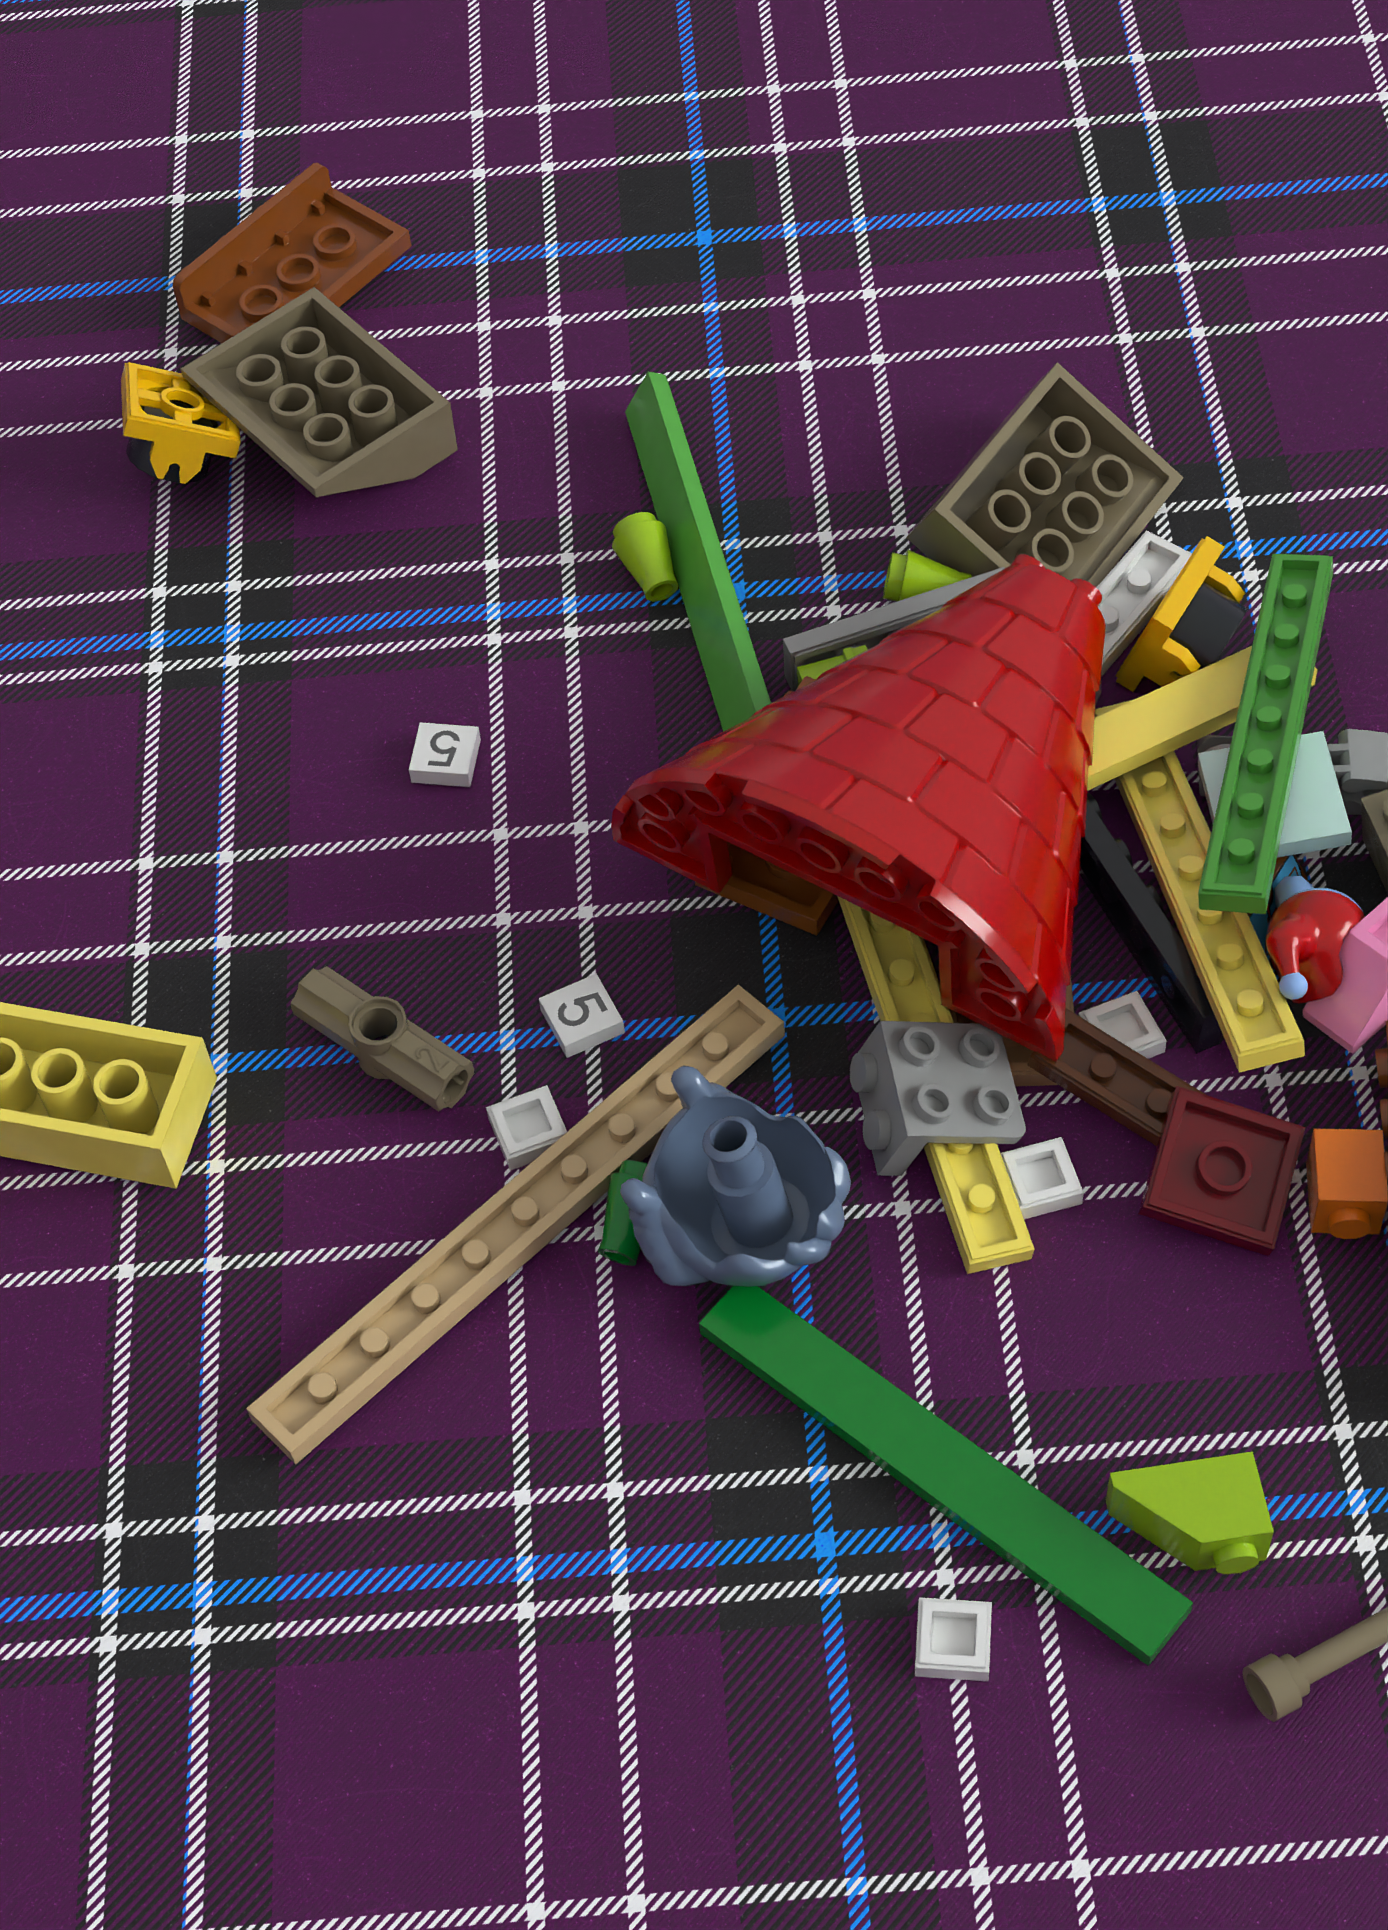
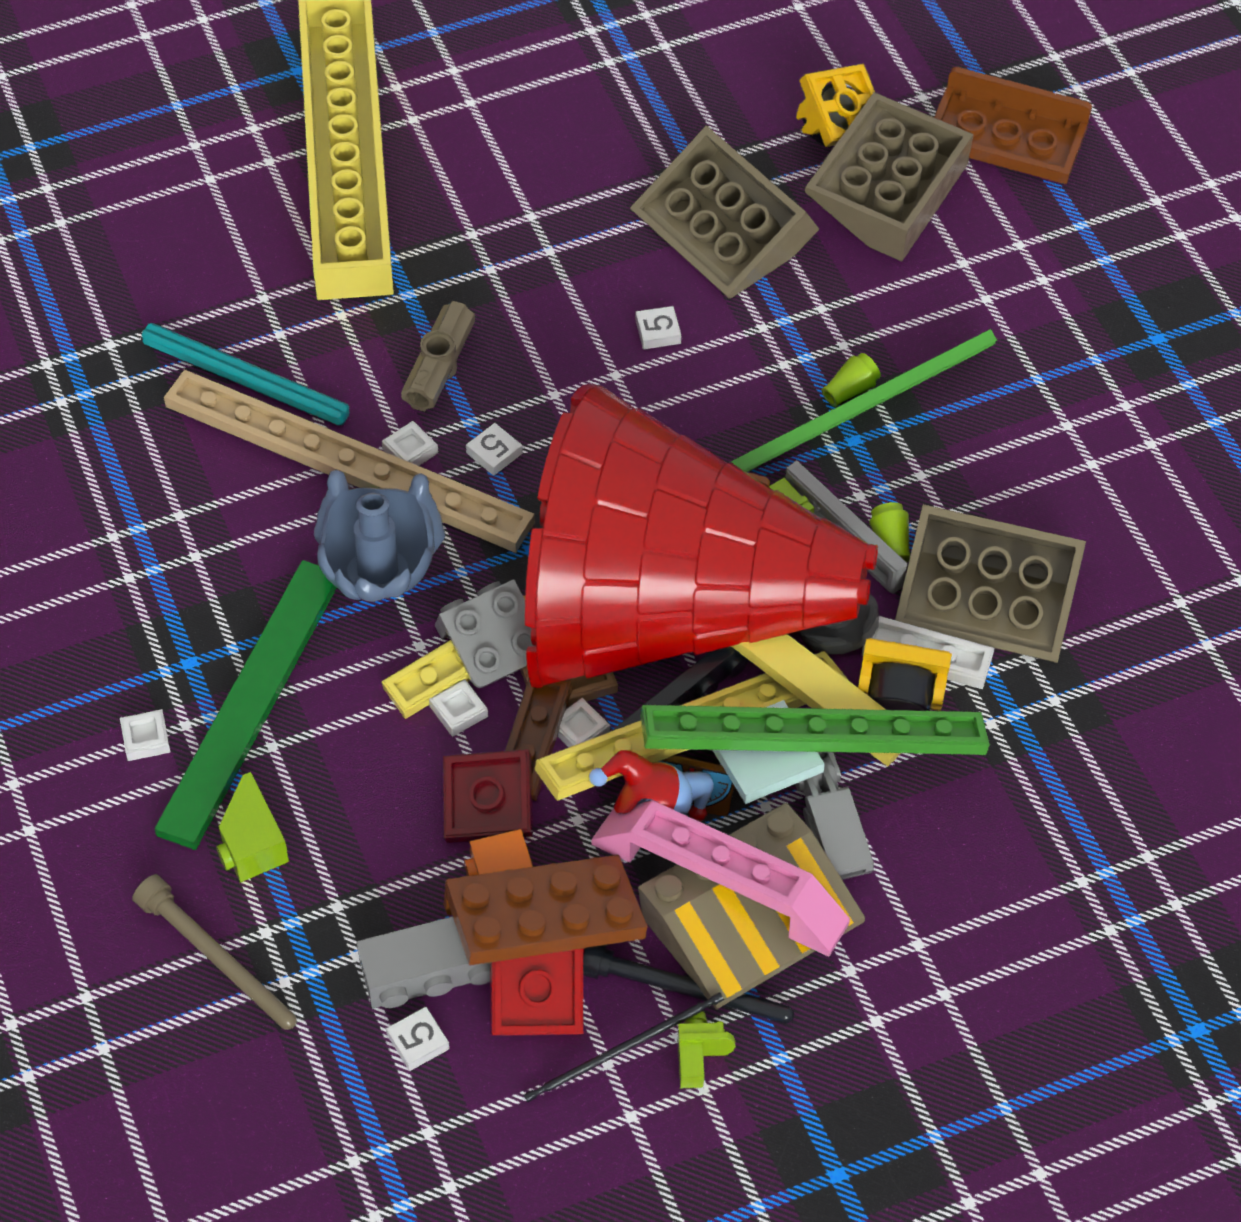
camera: 65 degrees right, 0 degrees up
(277, 1330) = (246, 374): none -> teal axle
(283, 615) = (724, 215): none -> dark tan slope

